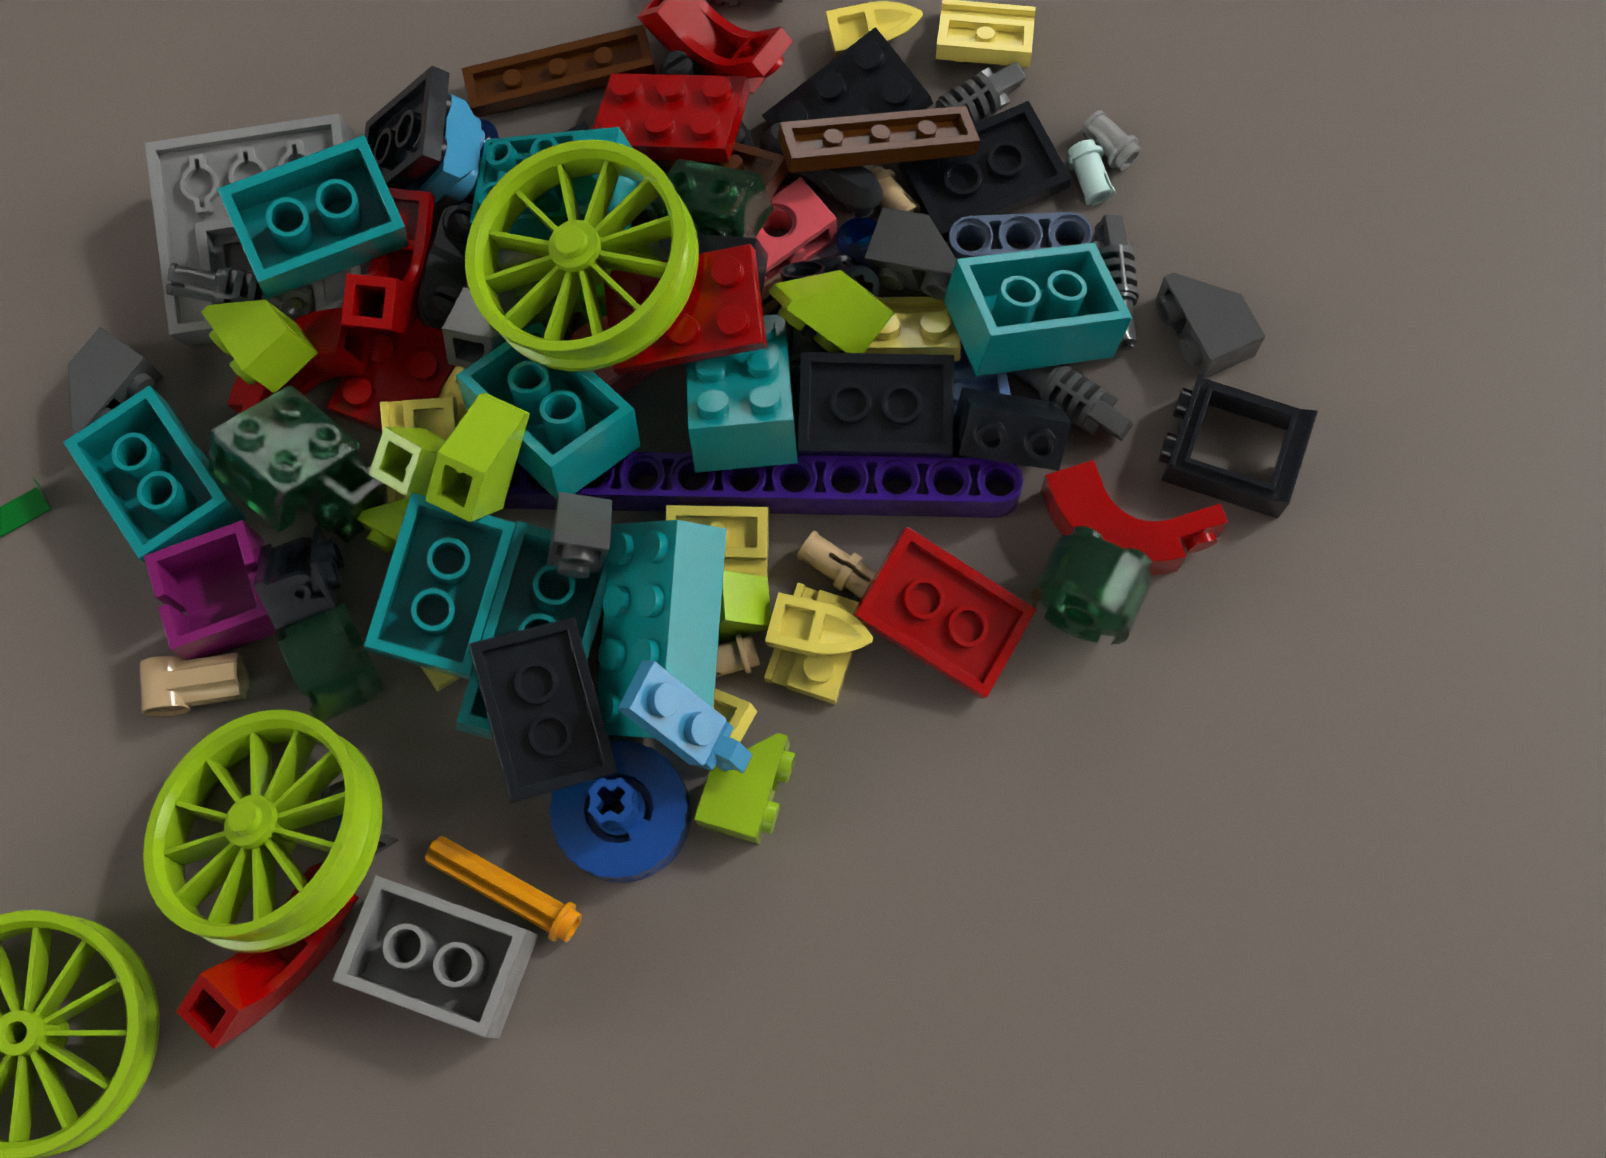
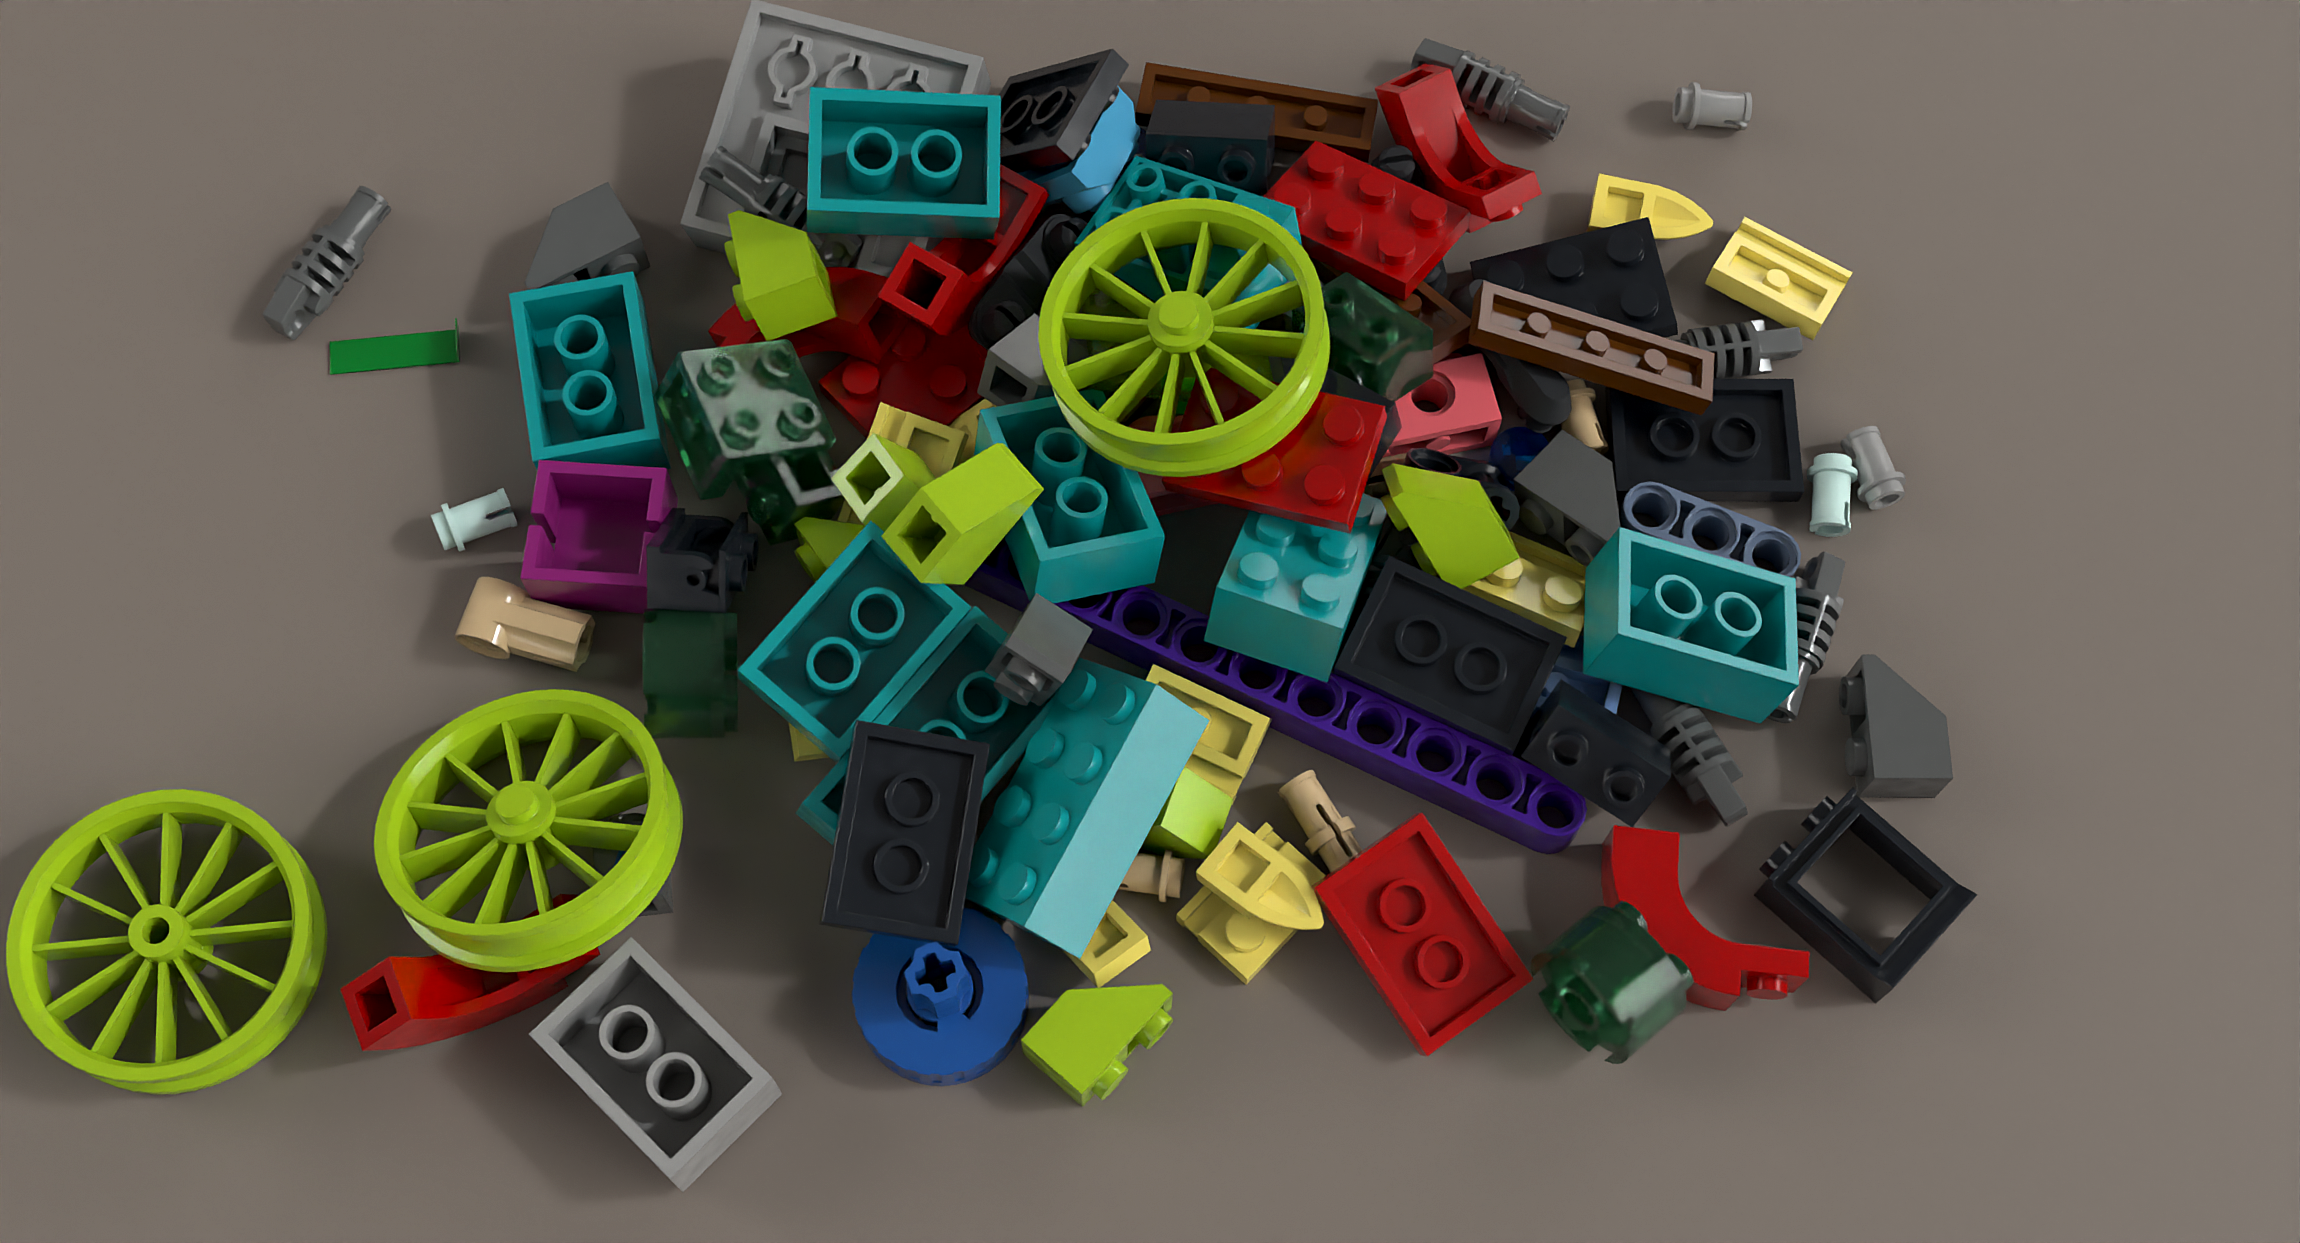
camera: 15 degrees right, 5 degrees down
(113, 623) = (470, 521): none -> light aqua pin
(504, 889) = (768, 1023): light orange axle -> none
(538, 104) = (1215, 141): none -> black hinge
(682, 720) = (1058, 917): dark azure hinge -> none

